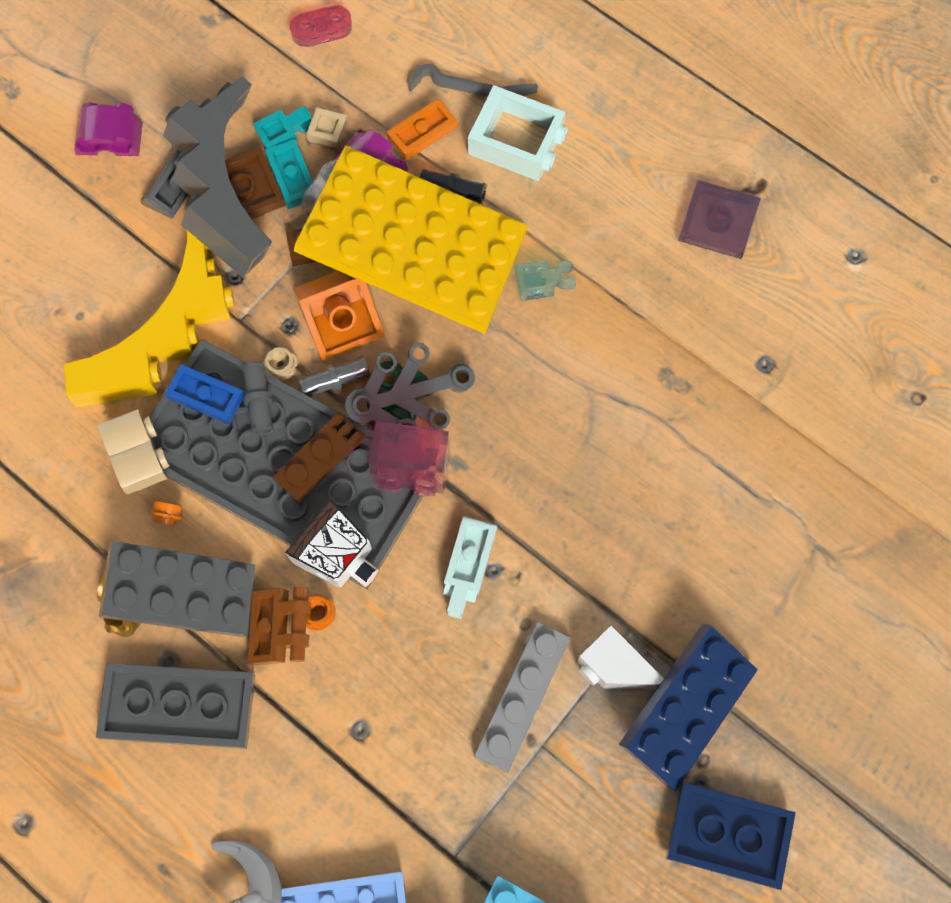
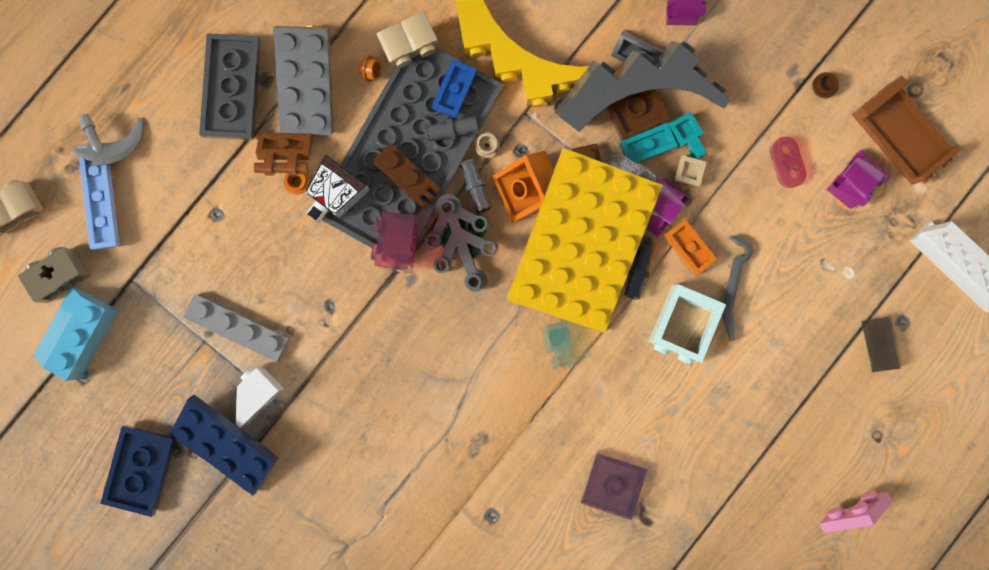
camera: 90 degrees right, 15 degrees up
(468, 564) = (331, 288): light aqua hinge -> none

